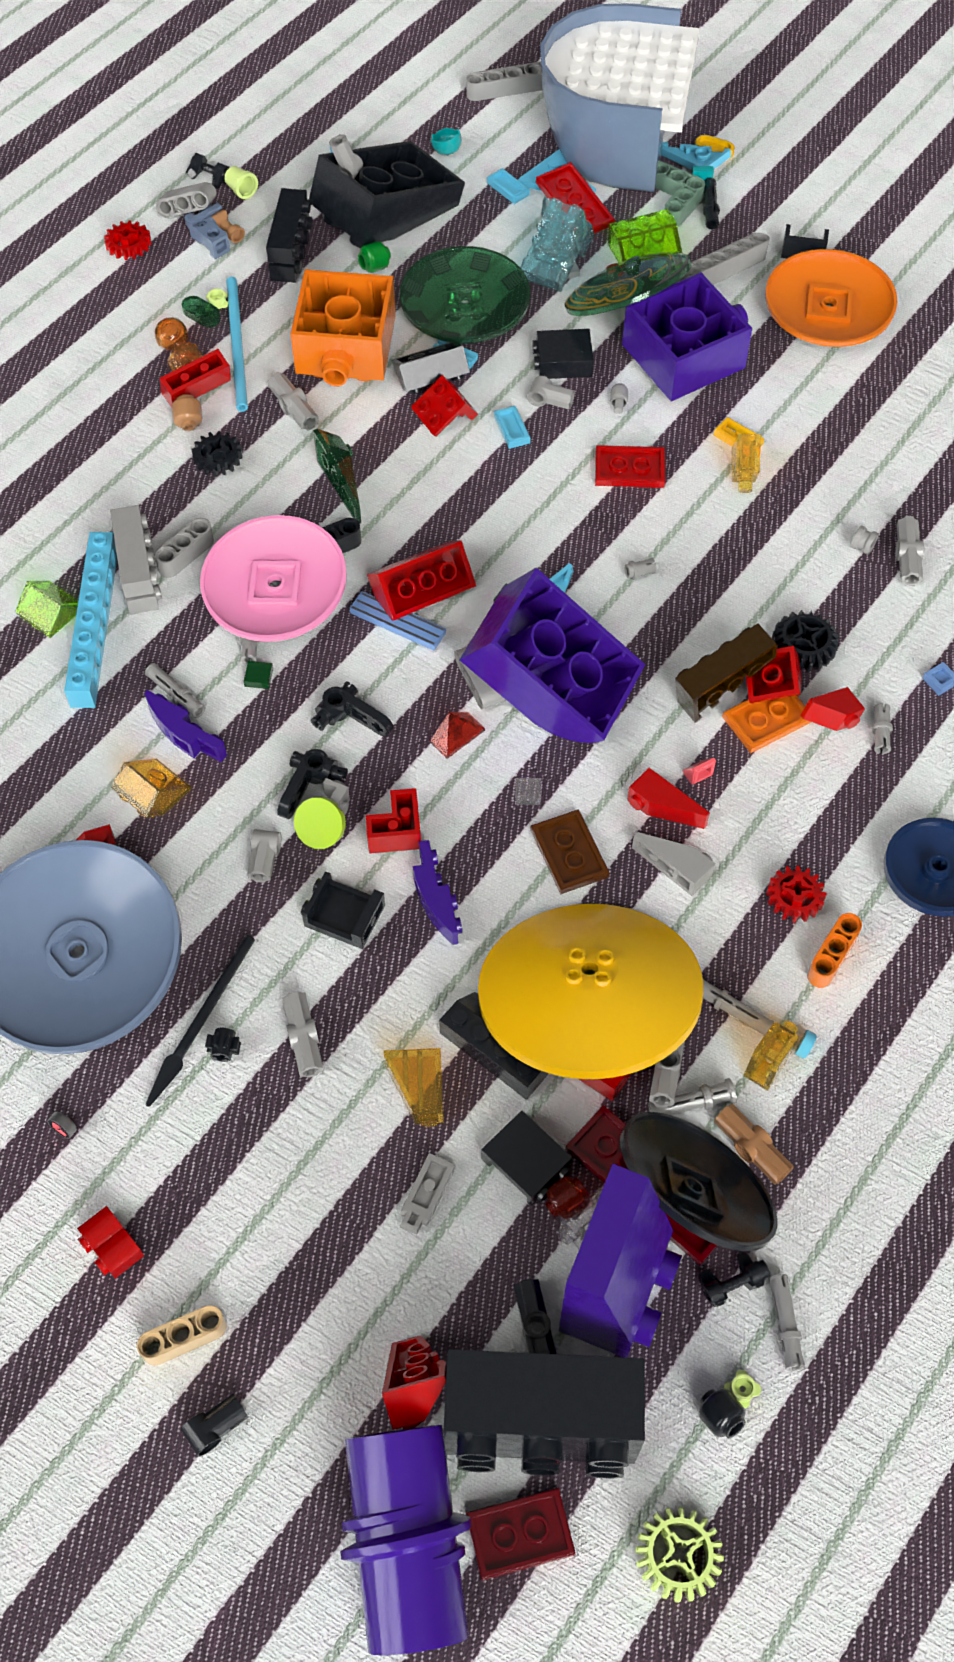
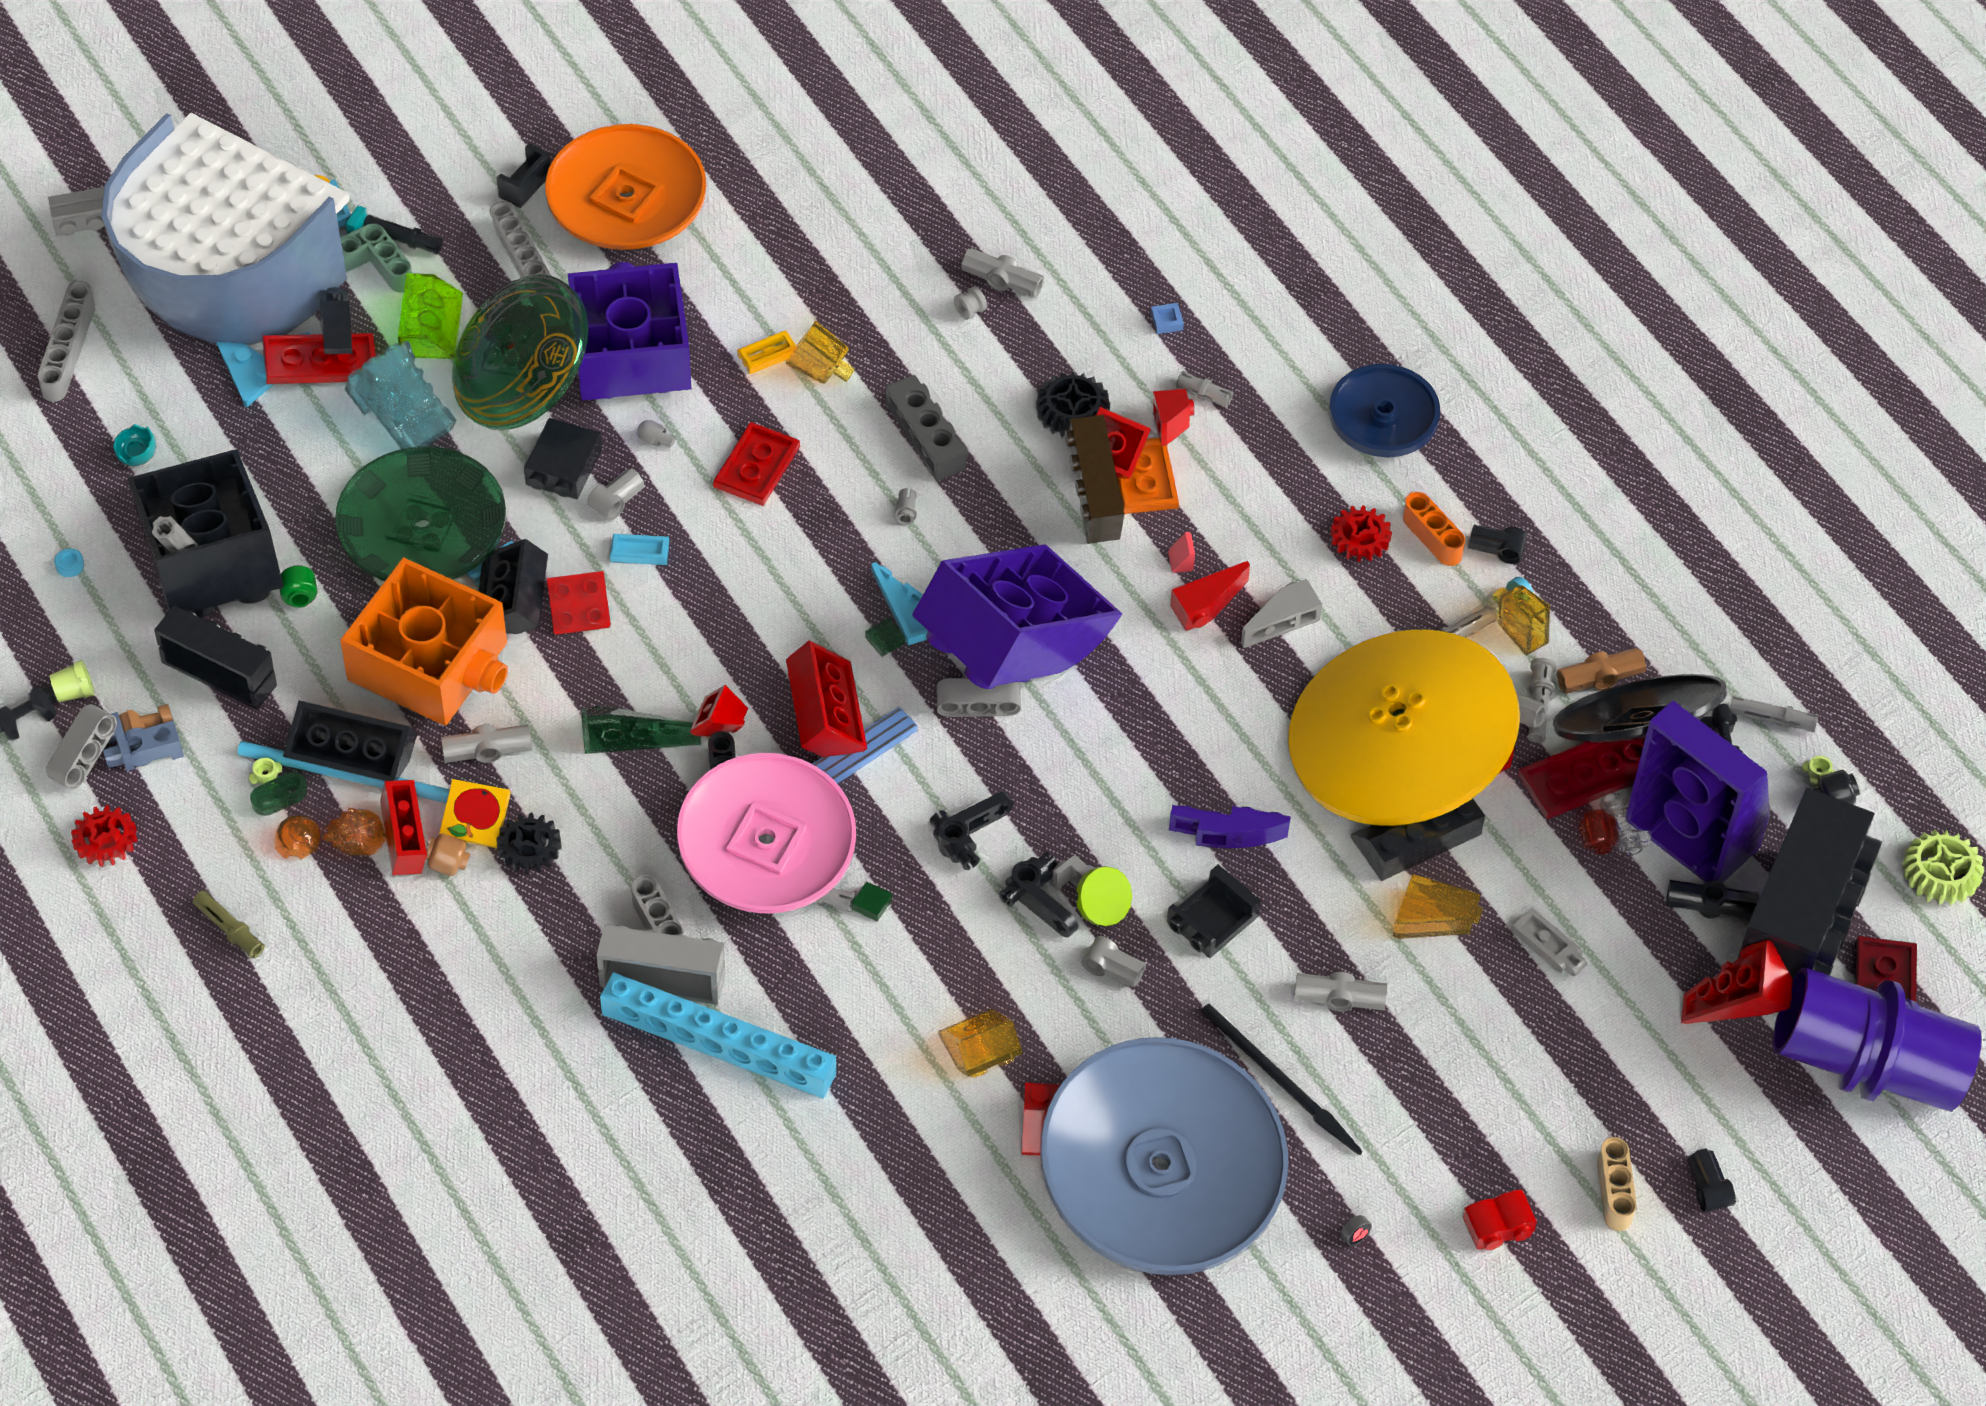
camera: 70 degrees left, 5 degrees down
(46, 606) = (672, 1081): clear neon green slope -> none
(80, 330) = (236, 931): none -> olive pin
(177, 727) = (906, 997): dark purple slope -> none
(181, 695) = (890, 971): light grey pin -> none
(223, 1044) = (1325, 1062): black gear -> none
(229, 413) = (475, 812): none -> tile
(254, 328) = (349, 742): none -> black slope
(373, 516) = (719, 712): none -> red slope
(397, 829) = (1140, 823): red brick -> none
(456, 732) = (1039, 746): clear red slope -> none
(508, 186) = (246, 415): medium azure tile -> none
(527, 791) = (1139, 709): clear tile -> none
(527, 1157) = (1546, 847): black panel -> none
(569, 851) = (1226, 699): reddish brown tile -> none
(604, 191) = (335, 321): none -> black slope
(722, 554) = (926, 427): none -> dark grey brick
(851, 1015) = (1506, 544): none -> black piece

